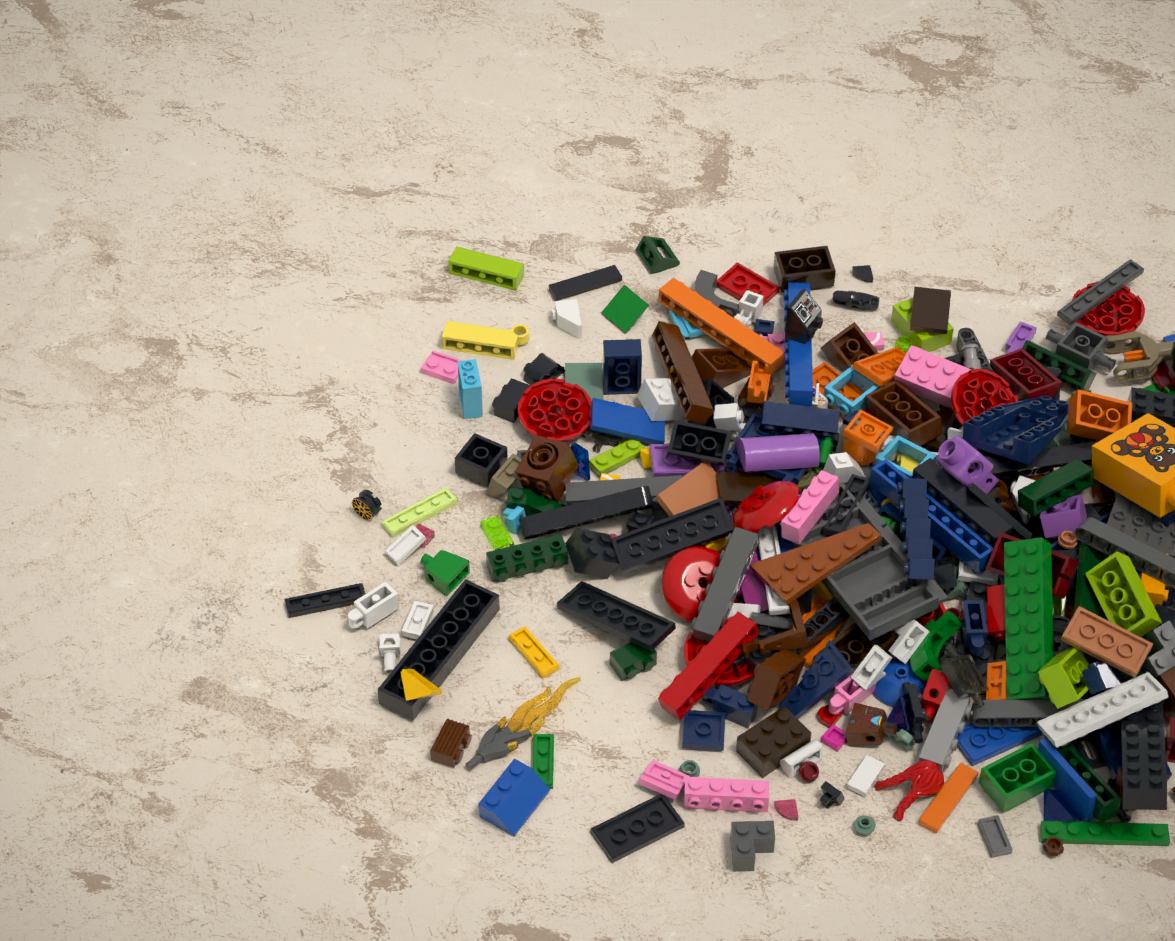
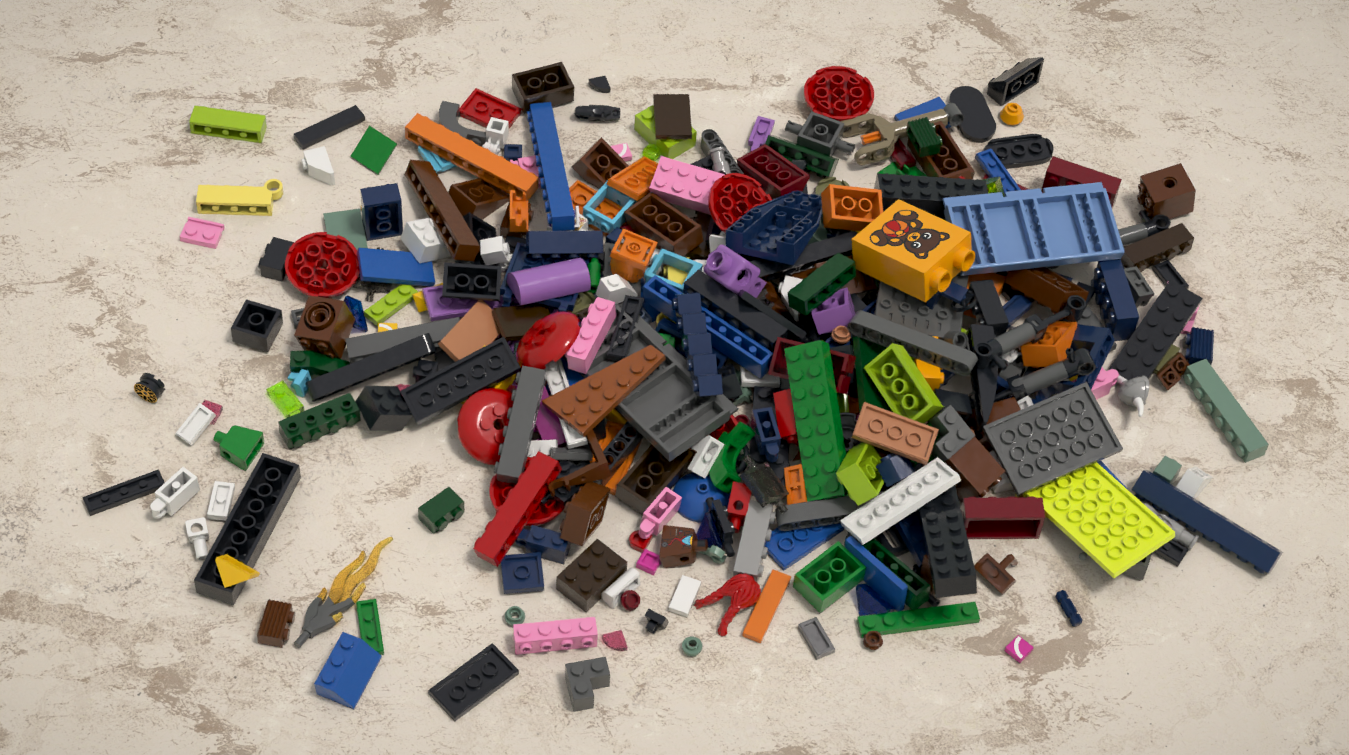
camera: 15 degrees left, 5 degrees up
(419, 512) = (203, 387): yellowish green tile -> none
(470, 389) = (234, 253): medium azure window -> none
(504, 477) = (284, 340): dark tan tile -> none
(533, 652) = (342, 516): yellow tile -> none
(542, 369) = (301, 224): black cylinder -> none
(616, 616) = (418, 469): black plate -> none
(653, 258) = (391, 92): dark green tile -> none
(663, 779) = (491, 629): bright pink plate -> none
(803, 318) = (552, 141): black slope -> none
(823, 676) = (628, 506): dark blue wing -> none
(871, 668) = (675, 489): white slope -> none
(1100, 292) = (829, 78): dark grey tile -> none

